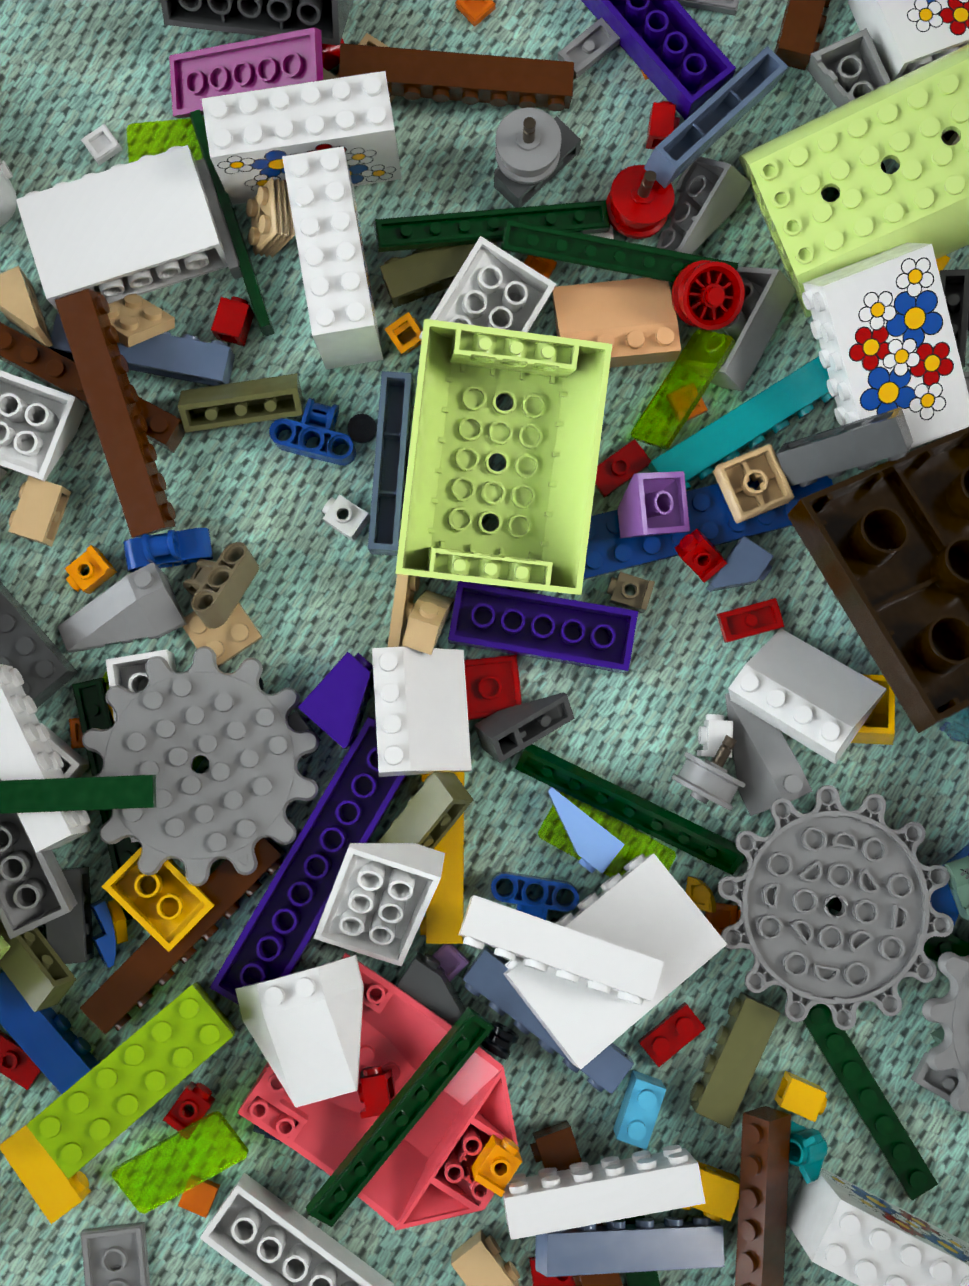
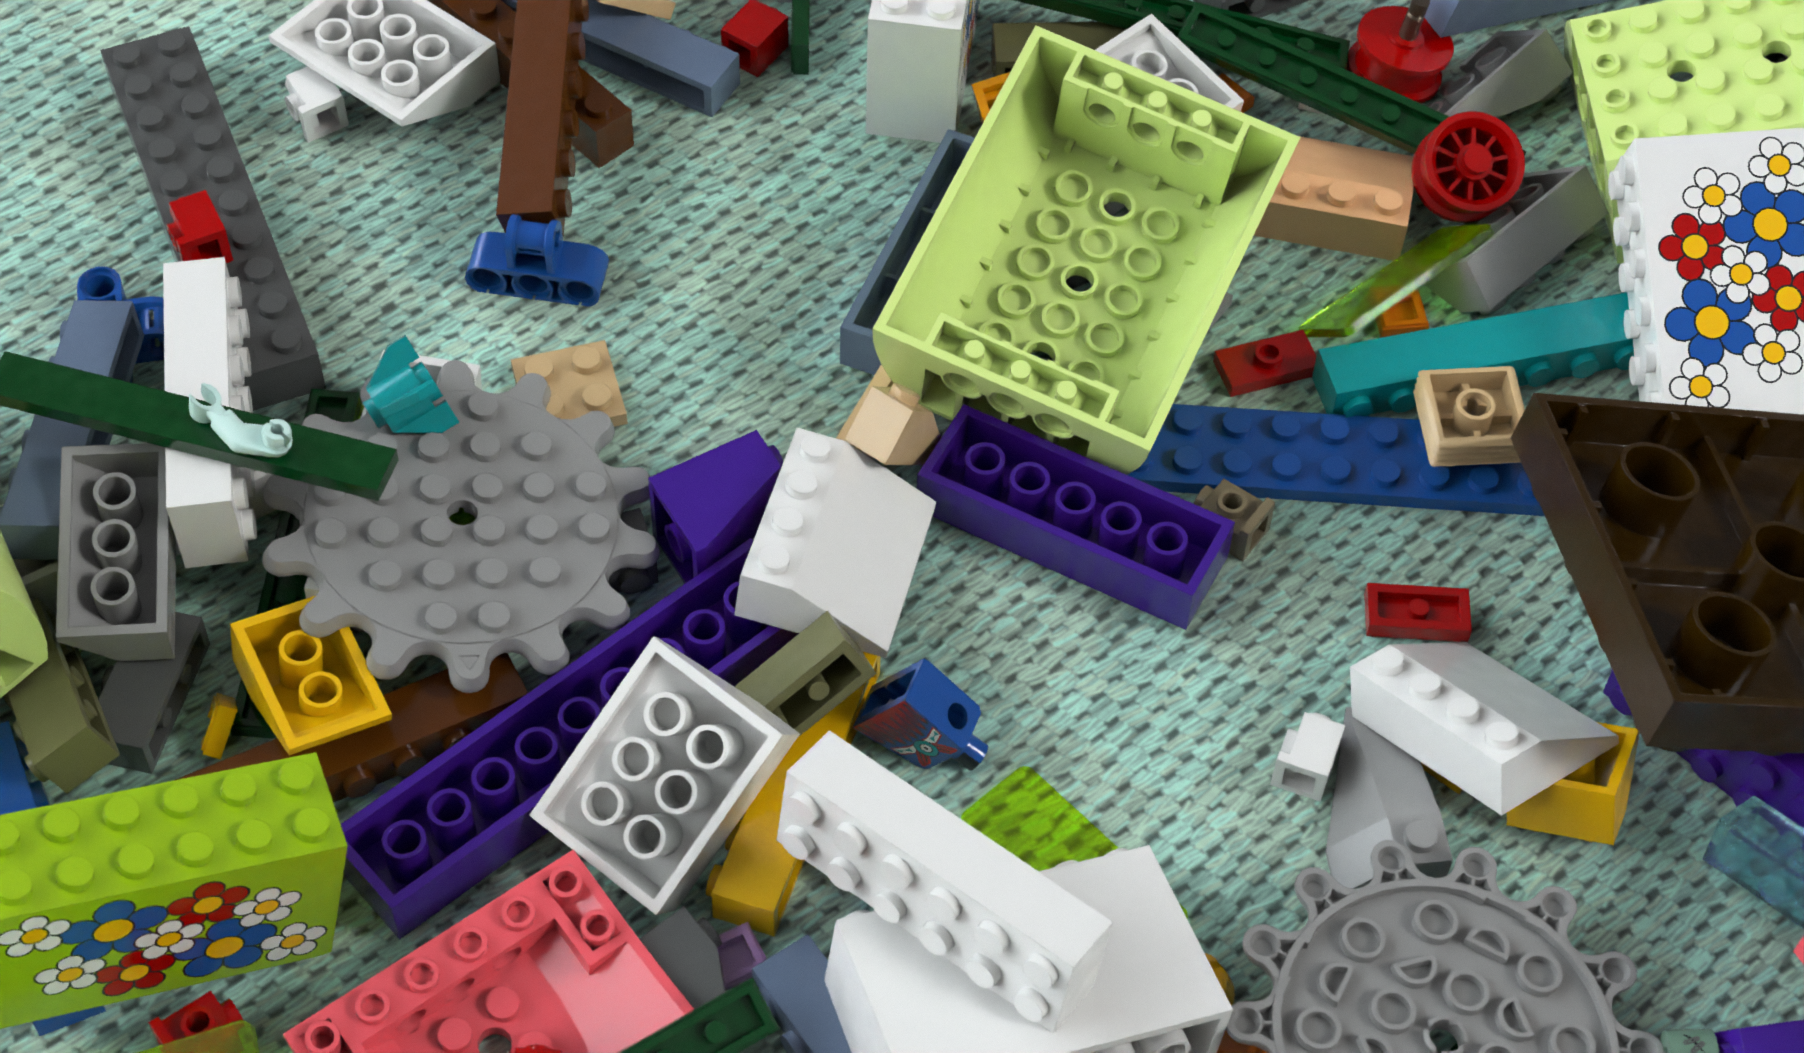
camera: 15 degrees right, 30 degrees down
(39, 511) = (373, 172): tan brick -> none
(60, 803) = (243, 438): none -> light aqua arm
(99, 571) = (409, 261): light orange brick -> none
(104, 941) = (188, 733): blue slope -> none
(129, 610) = (452, 316): light grey wedge -> none
(137, 706) = (405, 394): none -> teal brick
(221, 584) = (600, 320): dark tan piece -> none
(241, 403) = (726, 123): olive brick -> none
(309, 1028) = (467, 920): white wedge -> none
(319, 422) = (815, 195): blue piece -> none
(353, 524) = (819, 302): white brick -> none
(362, 428) = (885, 211): black piece -> none
(491, 685) = (960, 587): red tile -> none
(508, 795) = (922, 718): none -> blue torso
(522, 725) = (997, 637): dark grey slope -> none
(588, 838) = (1040, 816): light blue slope -> none
(630, 808) = (1125, 807): dark green plate -> none
(654, 505) = (1303, 396): medium lavender slope -> none
(700, 555) = (1362, 510): red brick -> none
(709, 779) = (1281, 790): light grey wheel -> none
(744, 566) = (1421, 534): sand blue slope -> none
(845, 448) = (1667, 369): dark grey brick -> none

